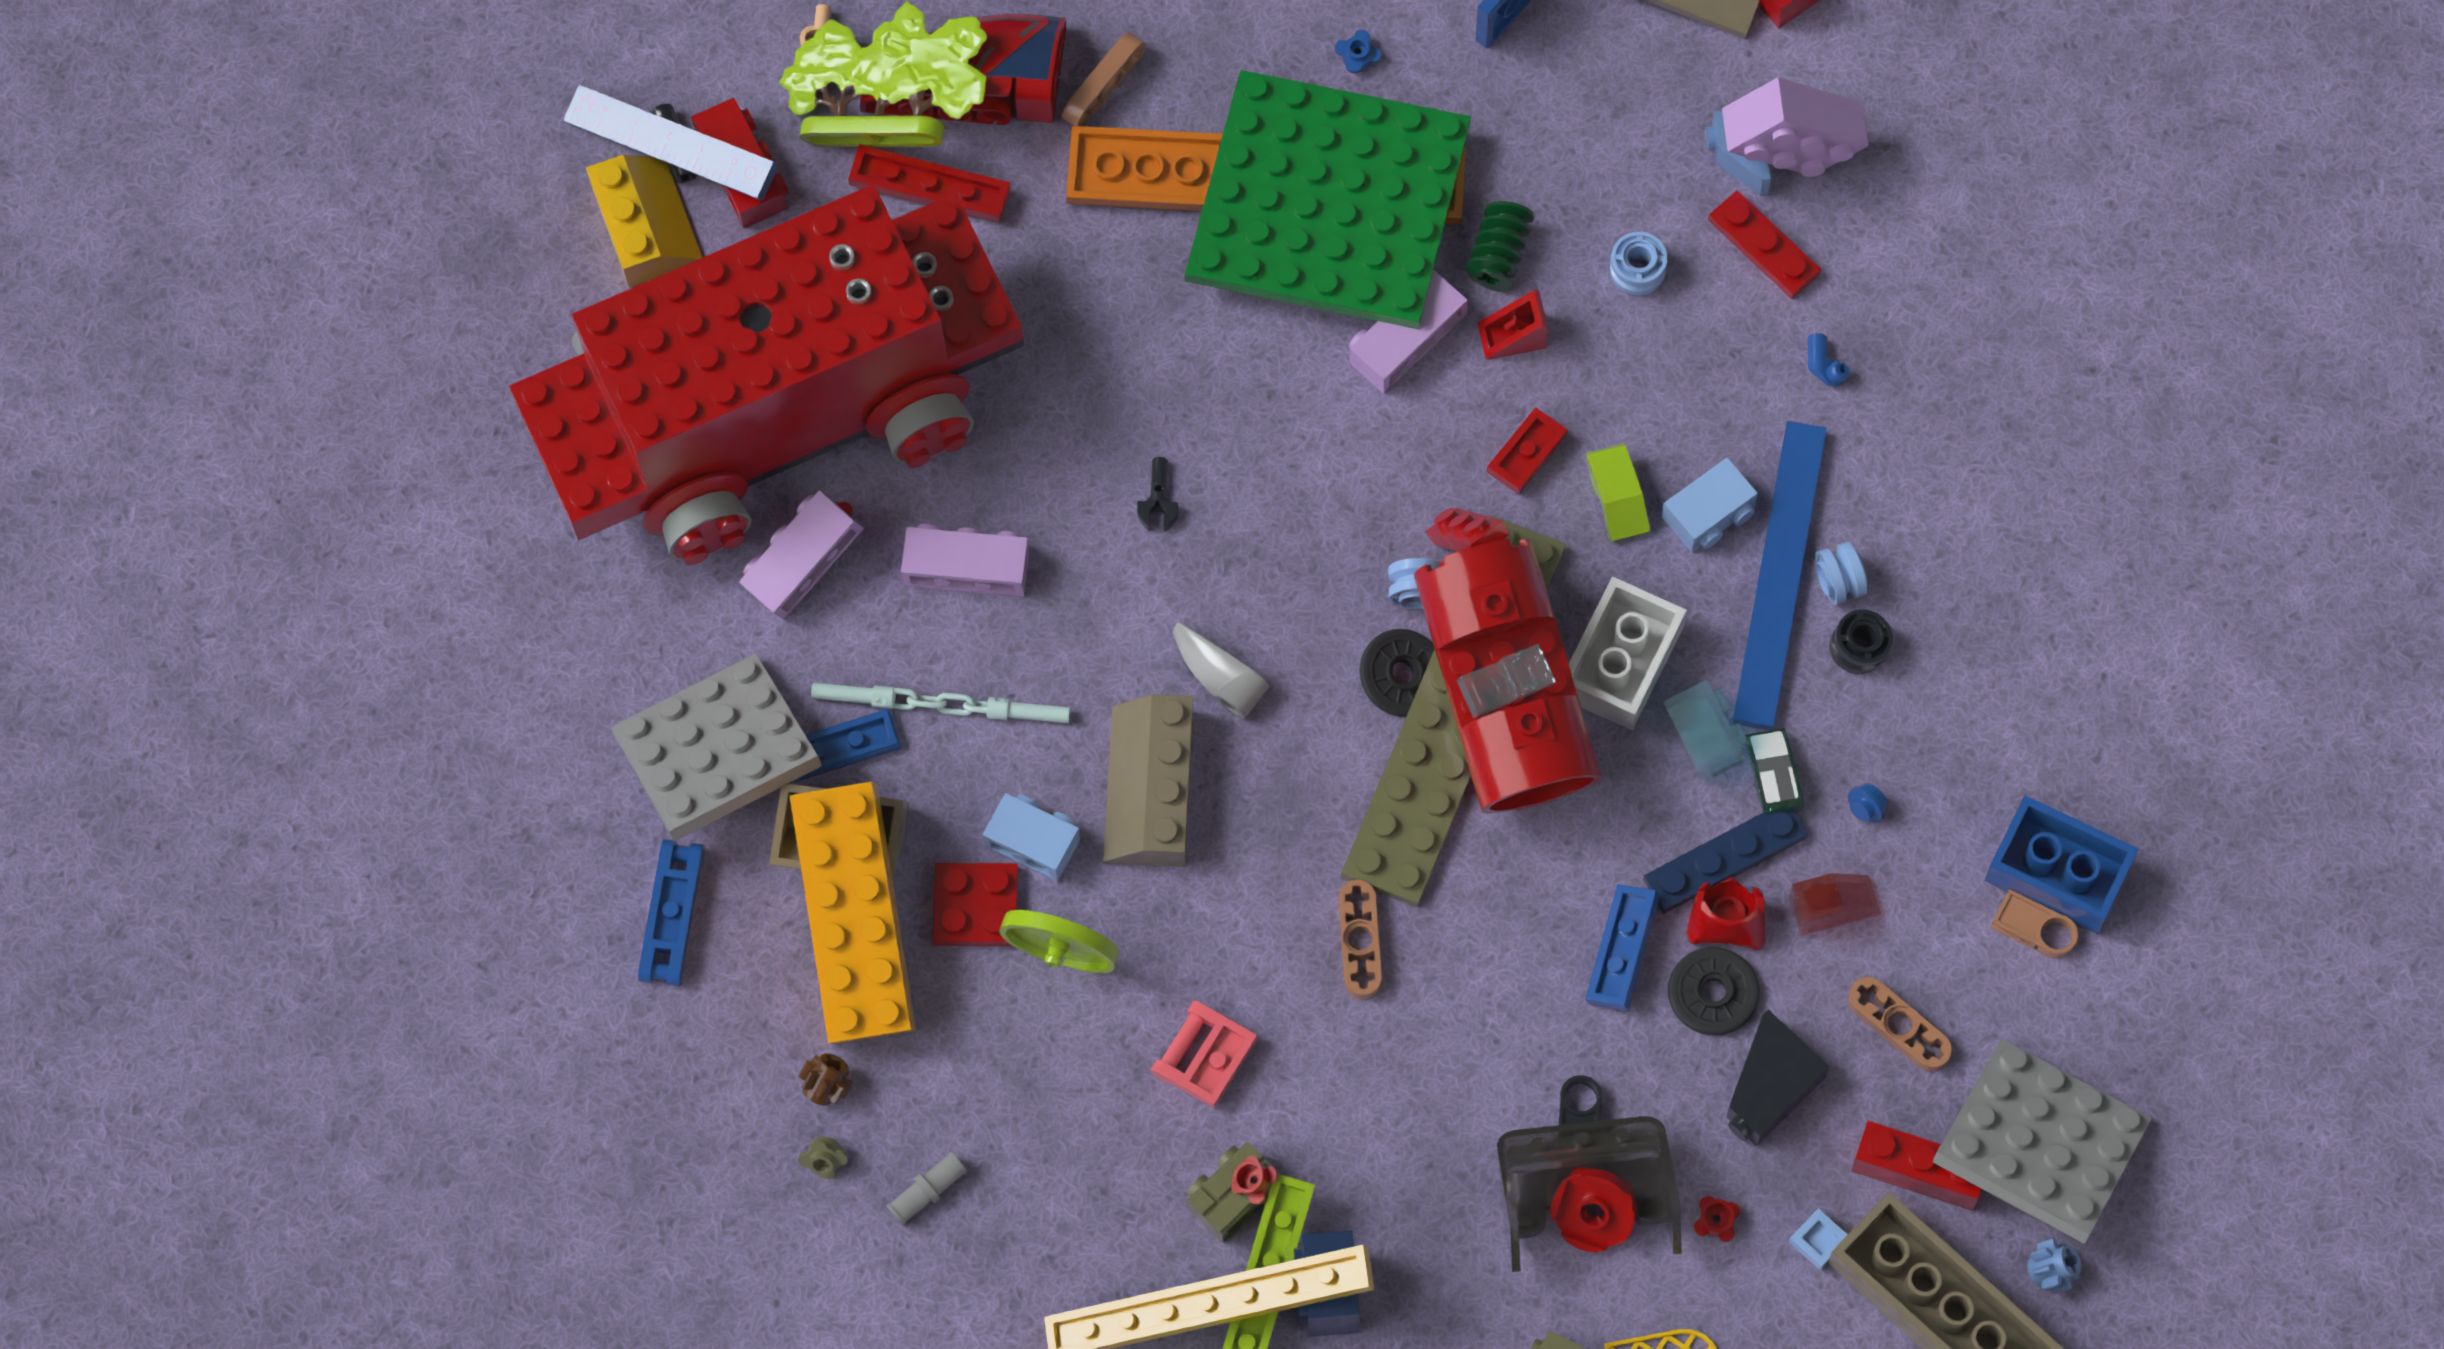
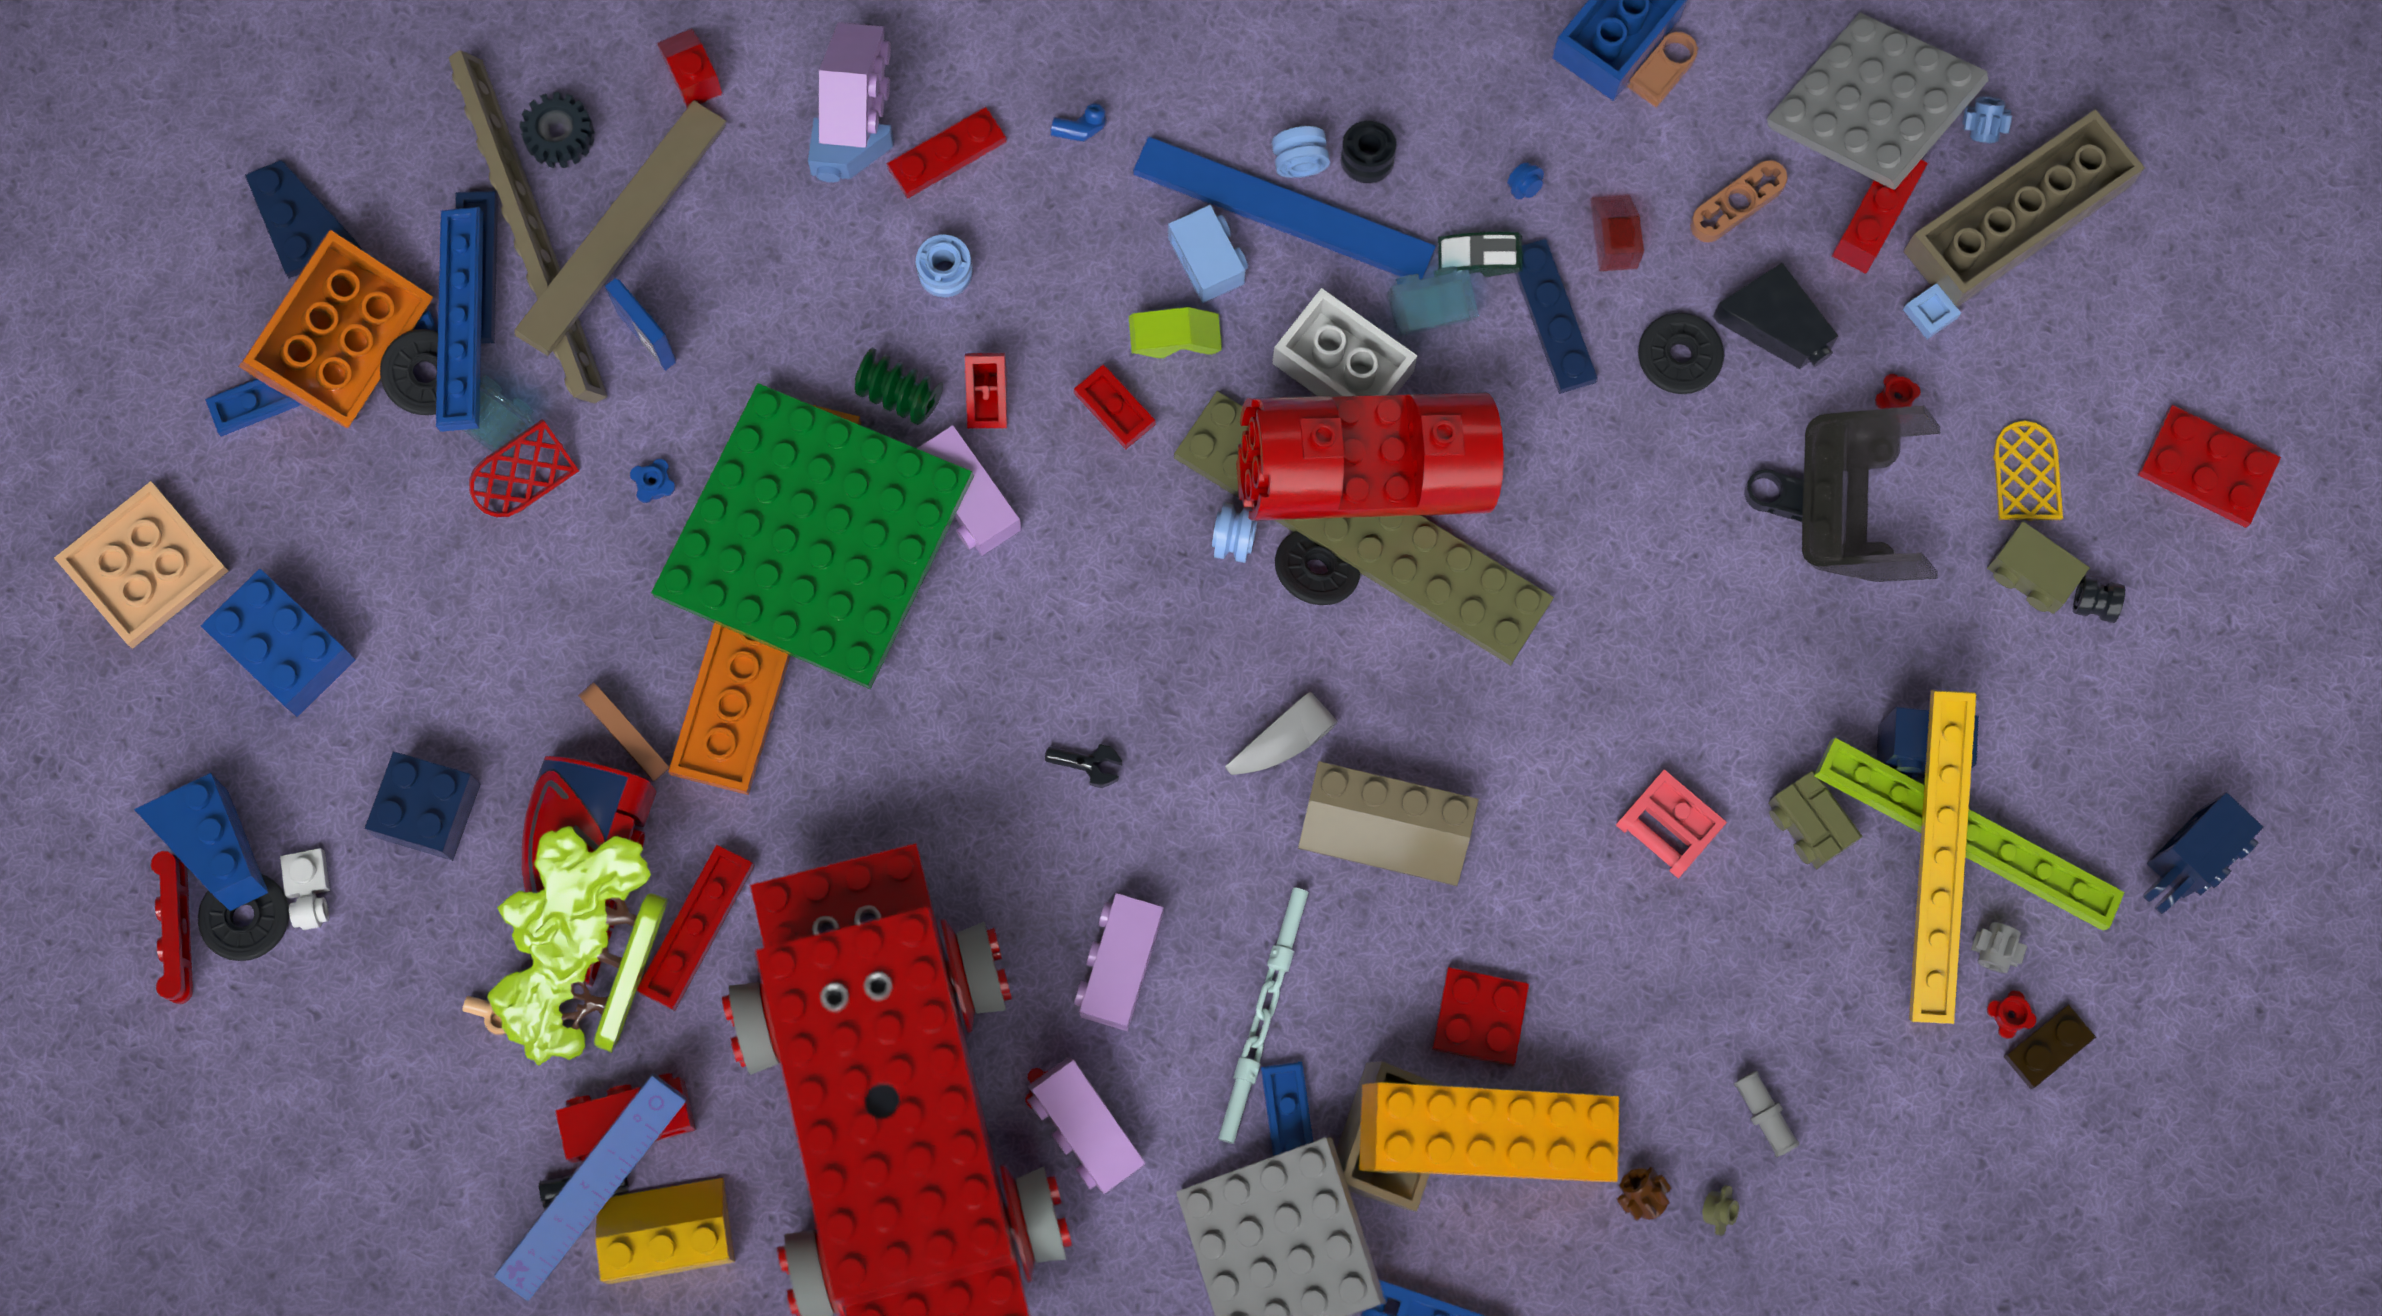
camera: 85 degrees left, 5 degrees up
(1032, 835) = (1424, 947): light blue brick -> none
(1055, 938) = (1554, 935): lime piece -> none
(1246, 1173) = (1822, 804): red plate -> none
(1350, 969) = (1592, 647): nougat beam -> none
(1463, 529) = (1202, 469): red plate -> none
(1506, 681) = (1385, 451): clear light blue slope -> none
(1596, 1187) = (1878, 478): red plate -> none
(1622, 947) = (1629, 421): blue plate -> none
(1728, 916) = (1613, 324): red hair -> none

